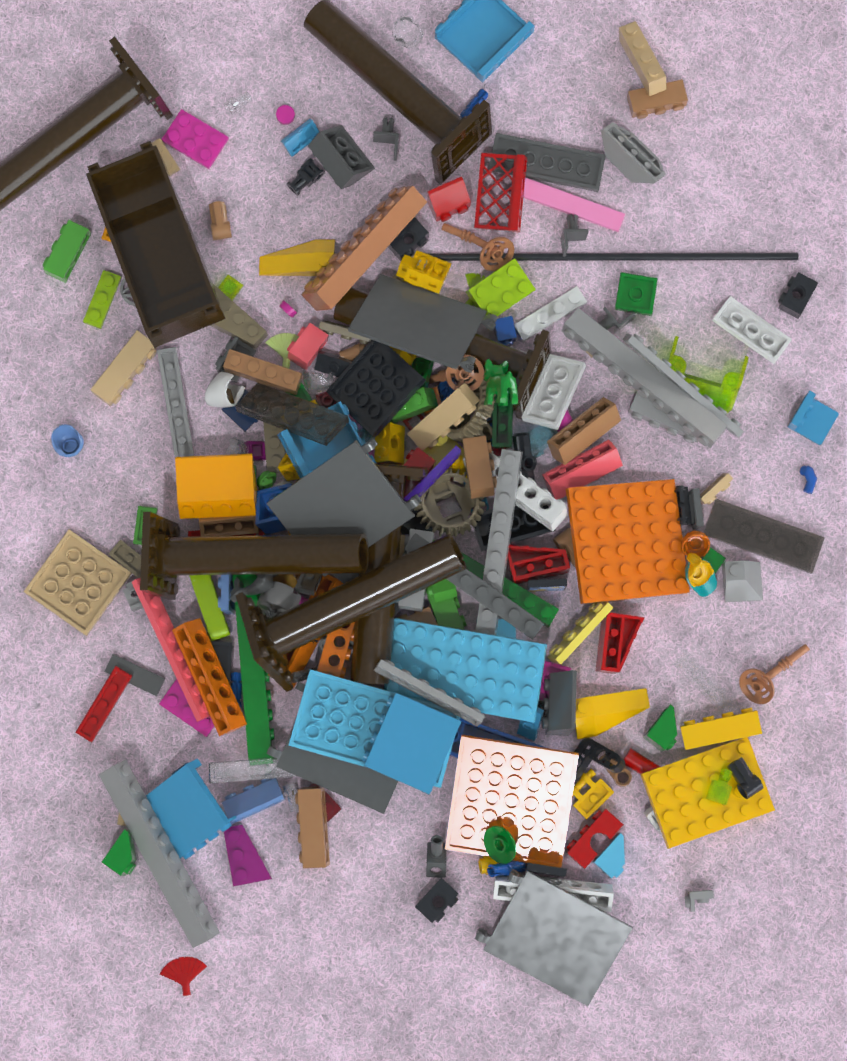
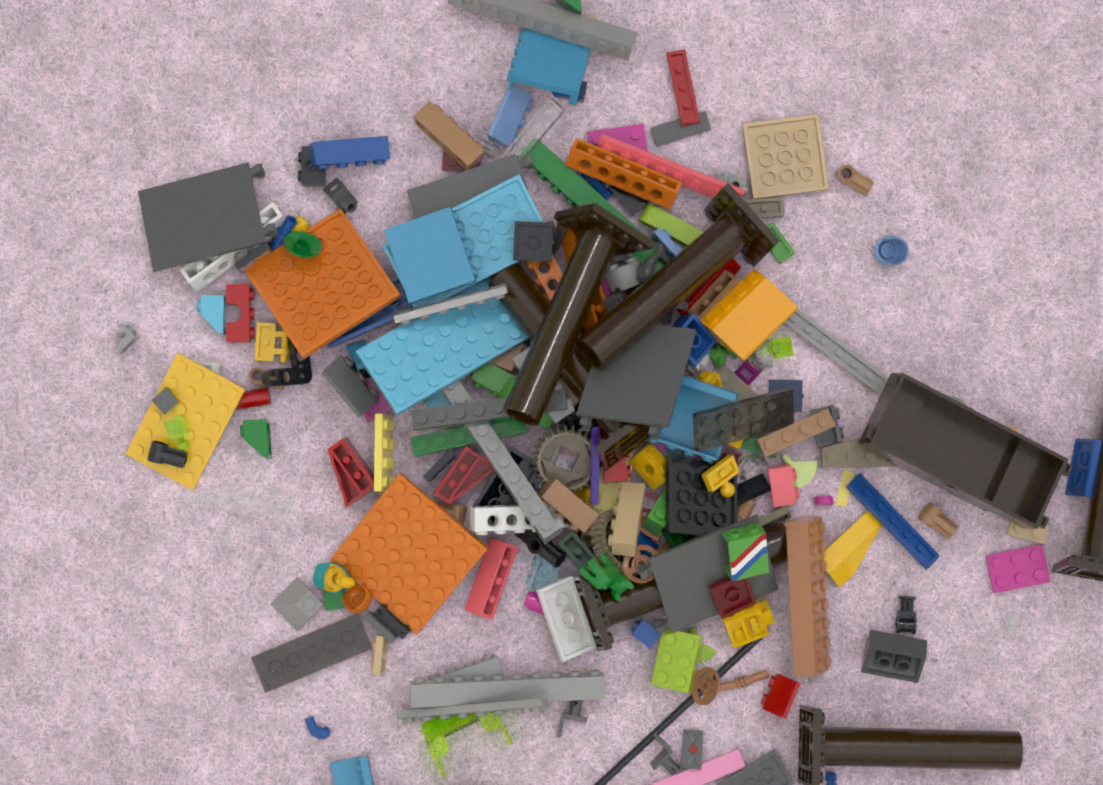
camera: 135 degrees right, 5 degrees up
(43, 517) = (856, 180): none -> medium nougat piece
(66, 251) = (1030, 392): bright green brick -> none
(73, 166) = (1084, 469): none -> blue tile
(102, 299) = (969, 381): lime plate -> none
(123, 369) = (902, 340): tan brick -> none
(214, 445) = (780, 347): none -> clear neon green plate
(222, 393) = (811, 392): white piece -> none
(230, 287) = (882, 478): clear neon green plate -> none
(243, 857) = (479, 71): magenta wing -> none
(252, 250) = (892, 521): none -> blue plate
(263, 305) = (843, 493): none -> light yellow window
(285, 114) = (967, 650): dark pink tile -> none
(300, 137) = (938, 643): dark azure plate -> none
(325, 683) = (533, 241): none -> black tile
(346, 390) = (719, 475): none -> yellow plate
(380, 310) = (746, 552): none -> bright green panel
(387, 135) = (875, 705): dark grey bracket -> none
(399, 884) = (349, 151): none -> blue brick
(414, 230) = (774, 646): black brick -> none
(418, 295) = (732, 596): none -> dark red plate
(517, 192) = (733, 748): red fence -> none
(547, 220) = (692, 749): none -> dark grey tile
(550, 314) = (624, 679): white plate -> none
(584, 431) = (516, 608): medium nougat brick -> none
(605, 711) = (314, 412): yellow wedge -> none
(636, 294) = (573, 754): green plate -> none
(710, 819) = (165, 400): none -> dark grey tile
(721, 729) = (216, 476): yellow brick -> none
(762, 678) = (217, 540): nougat dish -> none

